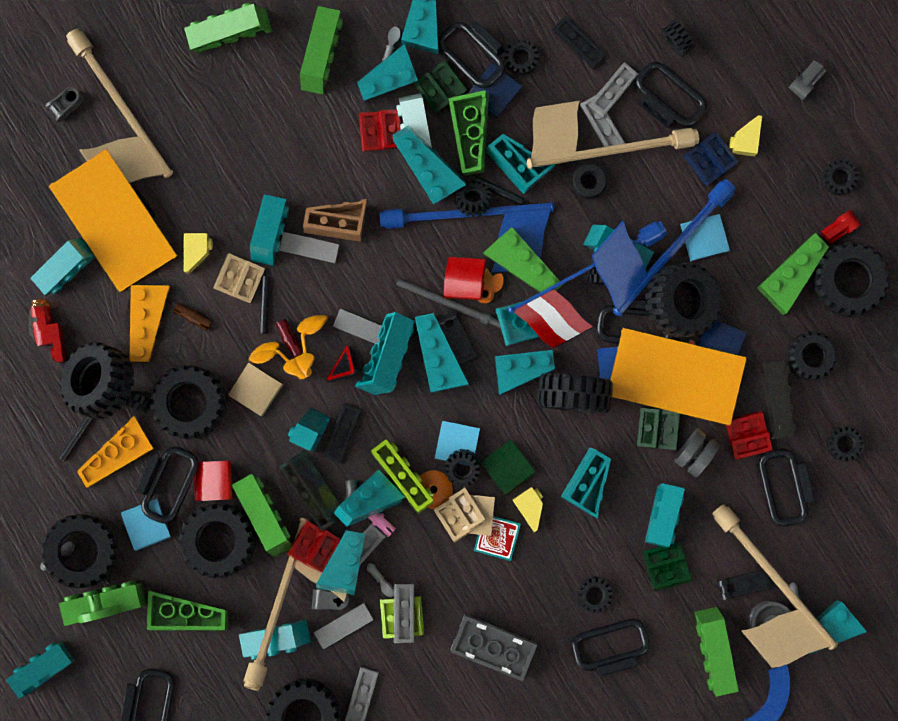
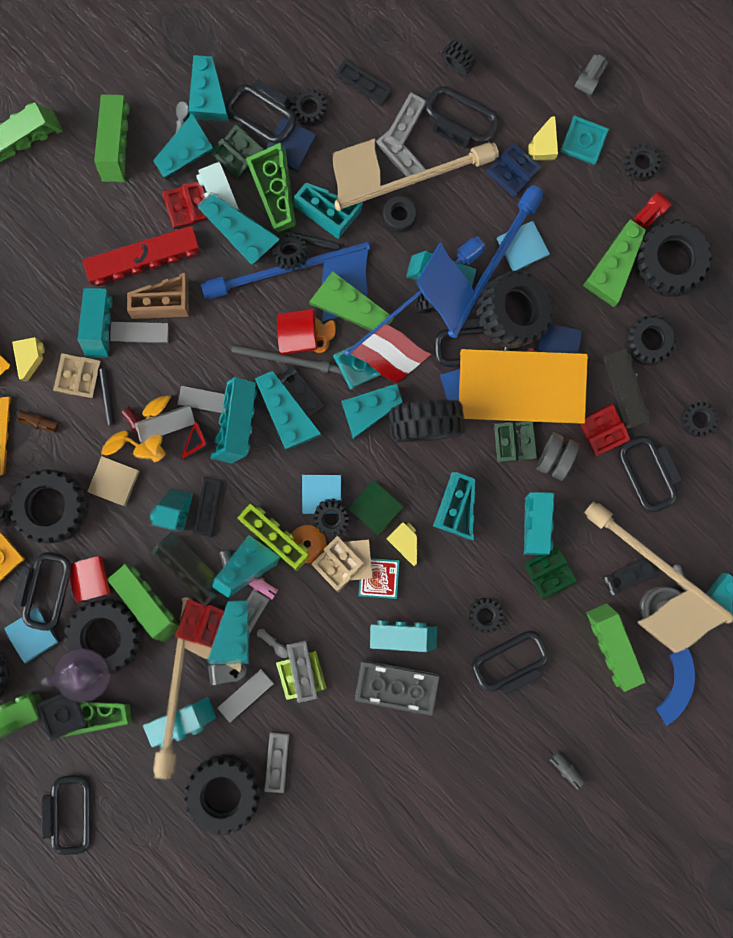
camera: 15 degrees left, 0 degrees up
(163, 608) = (60, 716): none -> black tile
(190, 573) = (80, 675): none -> clear purple piece
(318, 343) = (165, 422): none -> light grey tile
(326, 172) = (141, 255): none -> red brick
(509, 599) = (403, 636): none -> wedge
(787, 143) = (584, 140): none -> teal tile

